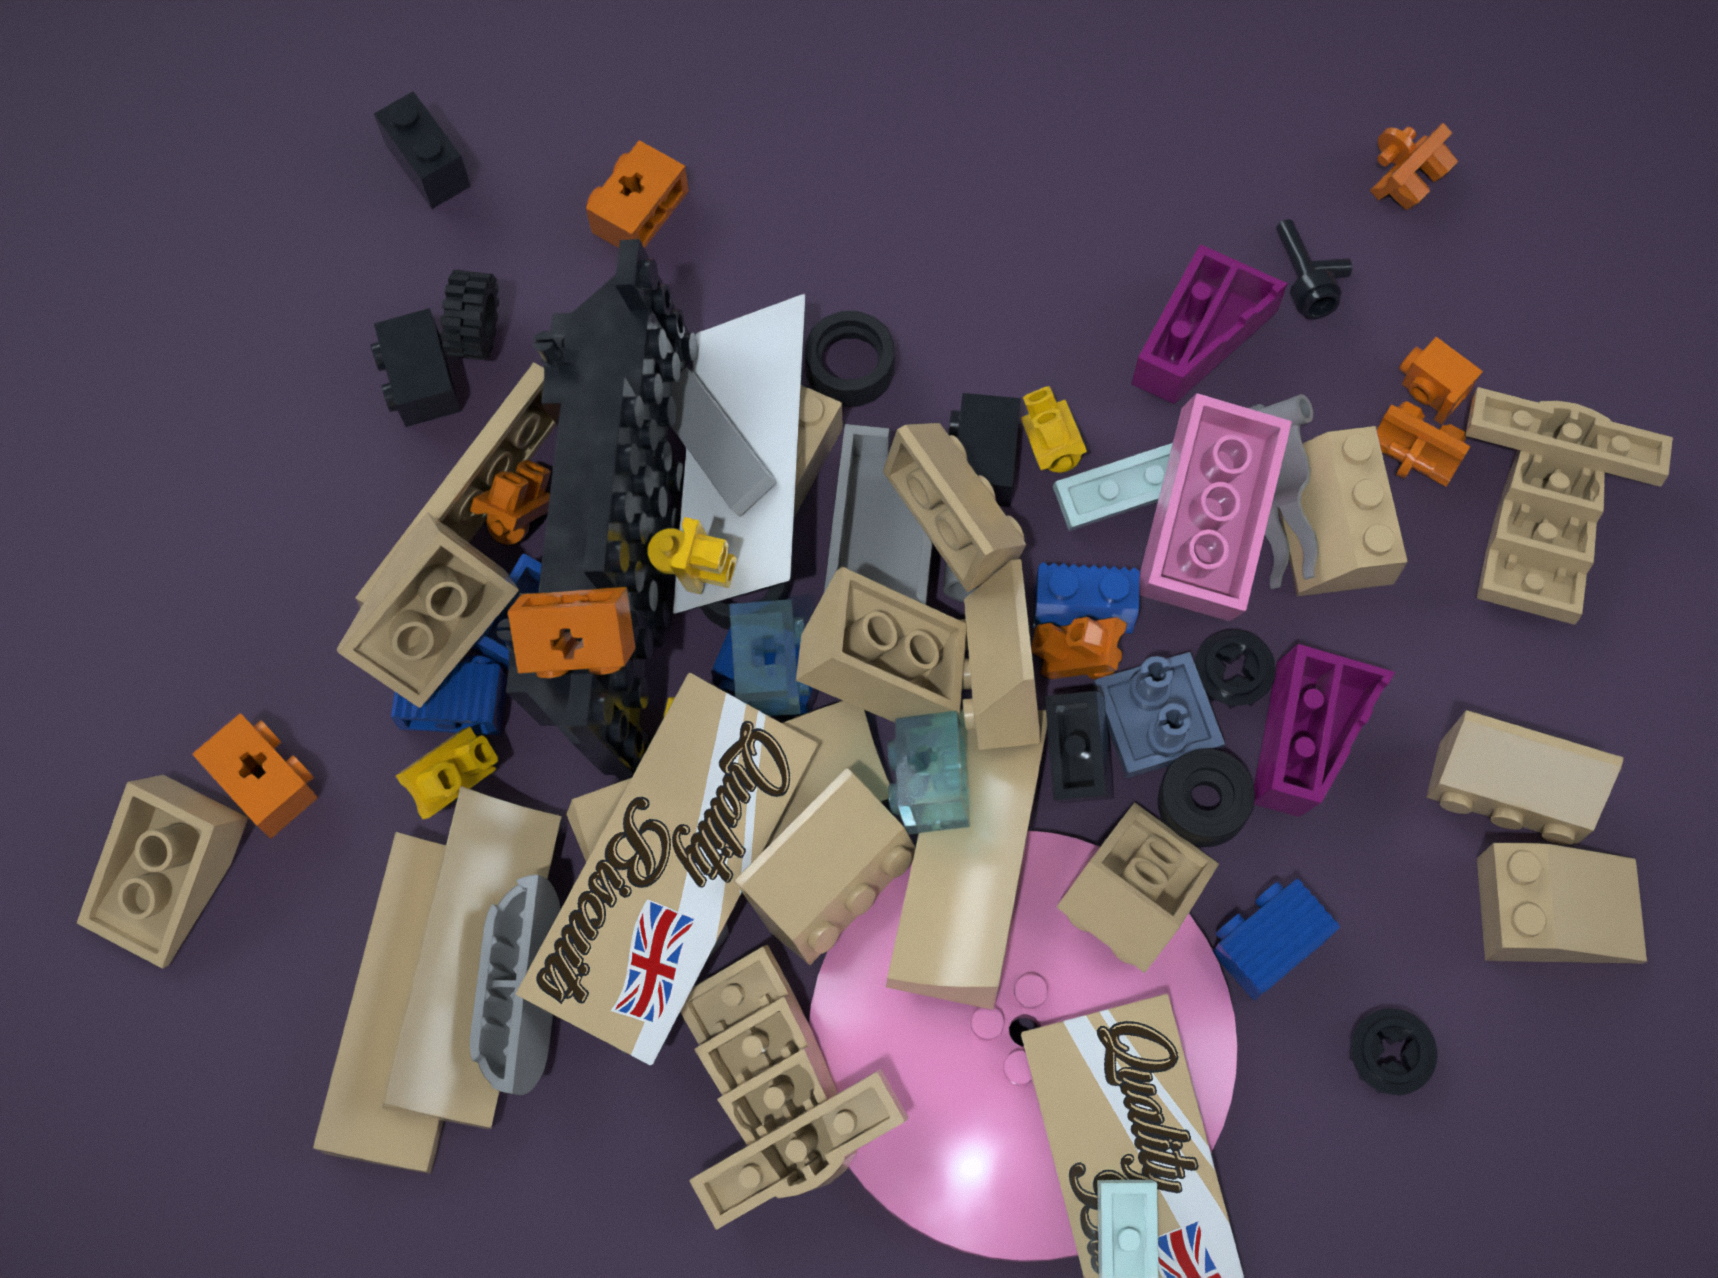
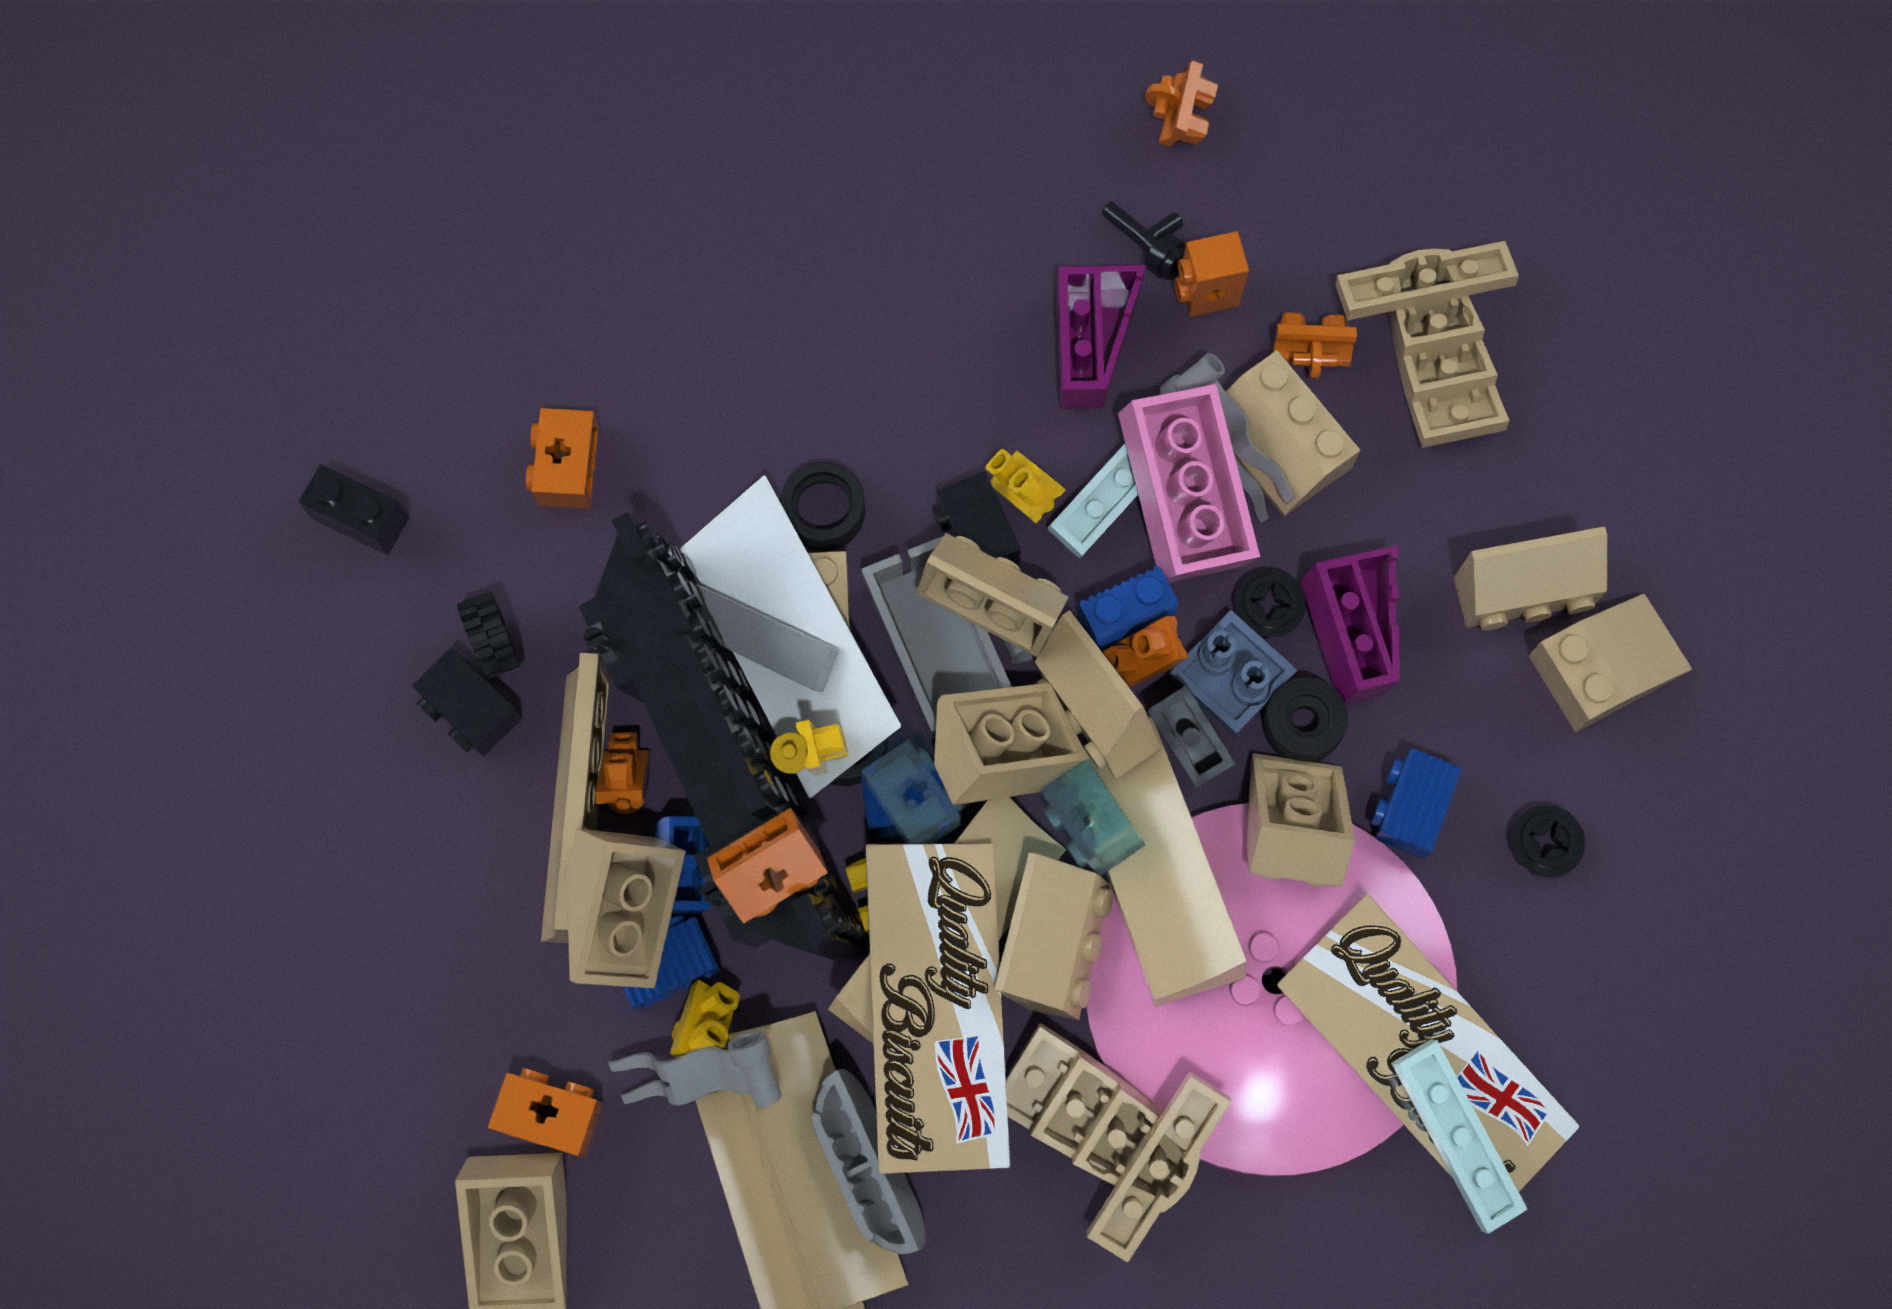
camera: 30 degrees left, 5 degrees up
(421, 811) = (706, 1070): none -> light grey flag
(1350, 326) = (1212, 274): none -> orange brick
(1439, 377) = (1299, 279): orange brick -> none

